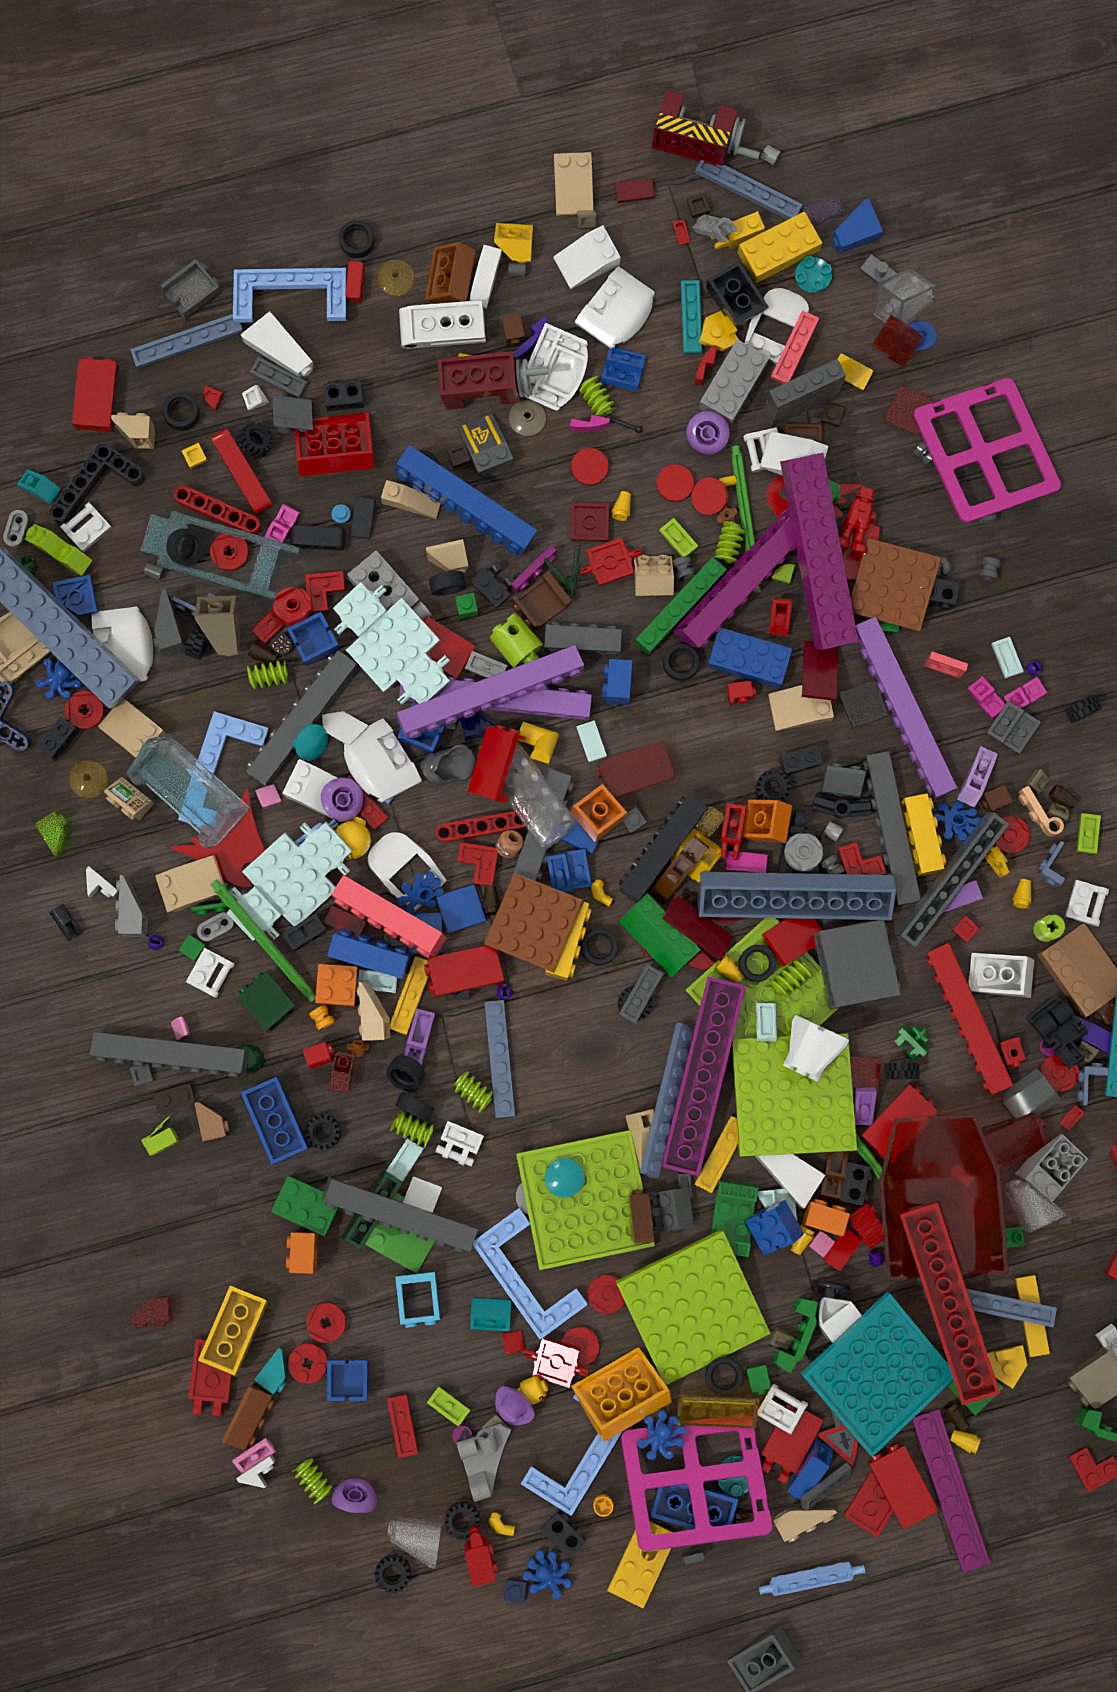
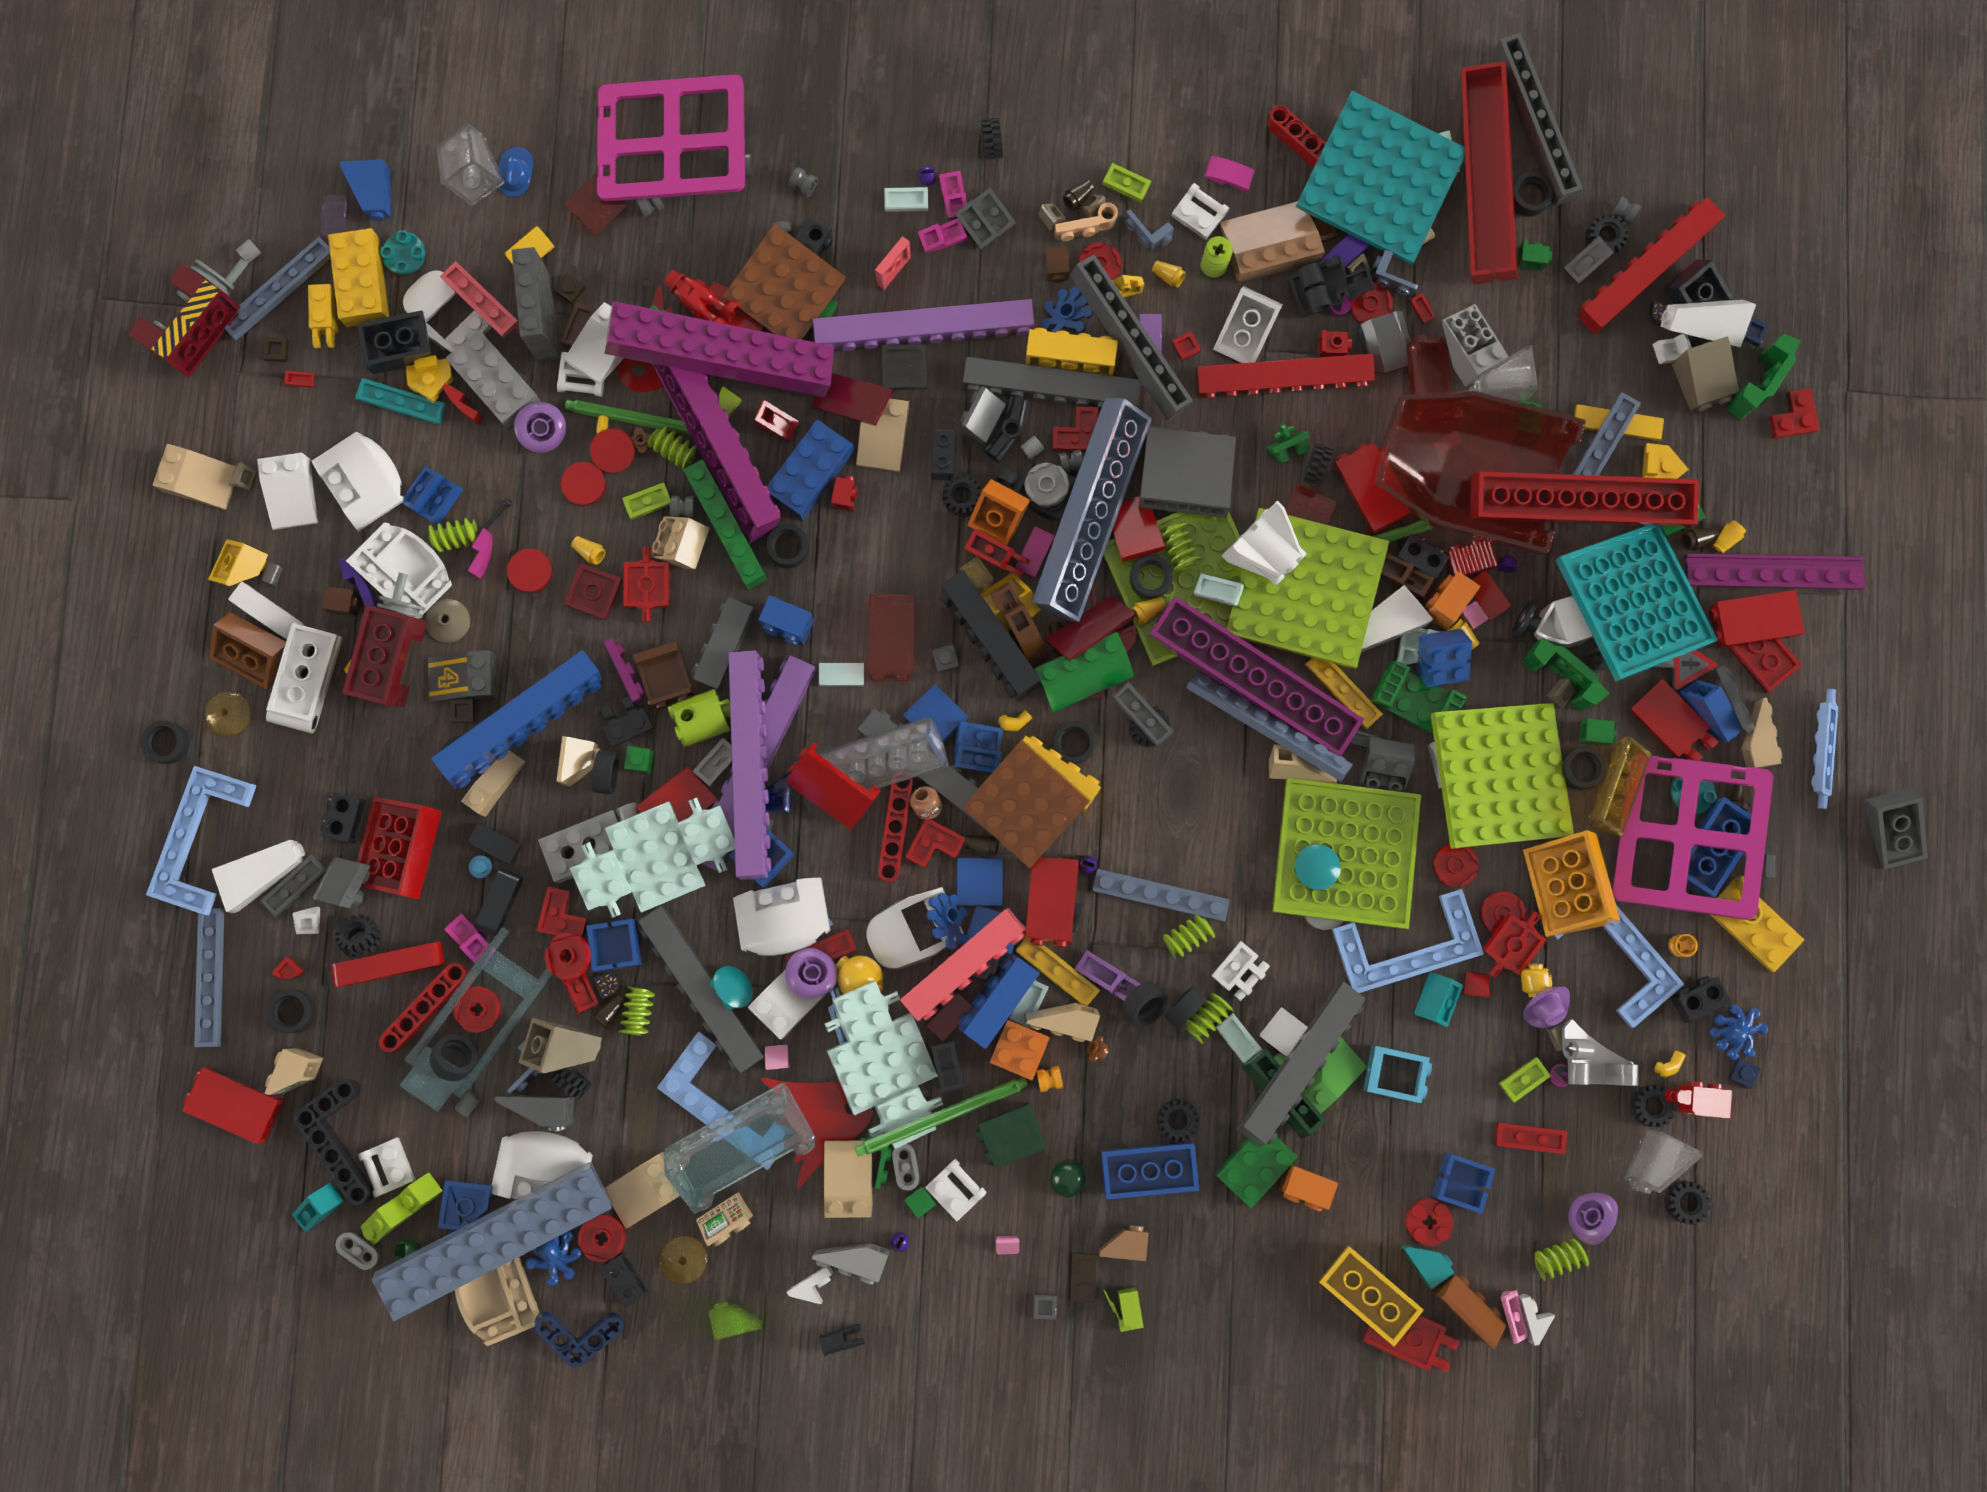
camera: 70 degrees left, 0 degrees up
(153, 1311) = (1319, 1378): clear red slope -> none
(169, 1053) = (1034, 1268): dark grey brick -> none
(190, 288) = (149, 952): window -> none
(194, 455) = (349, 1012): yellow plate -> none
(315, 1325) = (1377, 1186): red plate -> none
(319, 1055) = (1092, 1095): red brick -> none
(342, 1072) = (1120, 1076): clear red slope -> none
(343, 726) = (727, 945): white sticker -> none
(355, 282) = (214, 760): red slope -> none
(449, 765) = (813, 841): dark grey hair -> none
(542, 739) = (822, 726): yellow brick -> none
(568, 581) = (652, 634): clear green plant -> none
(598, 813) = (926, 691): orange brick -> none
(634, 190) = (231, 413): dark red tile -> none
(640, 1217) = (1390, 798): reddish brown slope -> none
(662, 1435) = (1632, 856): blue animal -> none
(714, 227) = (308, 337): light grey plate -> none
(778, 1414) = (1643, 723): white plate -> none
(864, 1105) = (1341, 516): medium lavender plate -> none
(876, 270) = (425, 183): flat silver tile -> none
(897, 340) = (513, 187): clear red slope -> none
(977, 777) = (1027, 275): lavender slope -> none

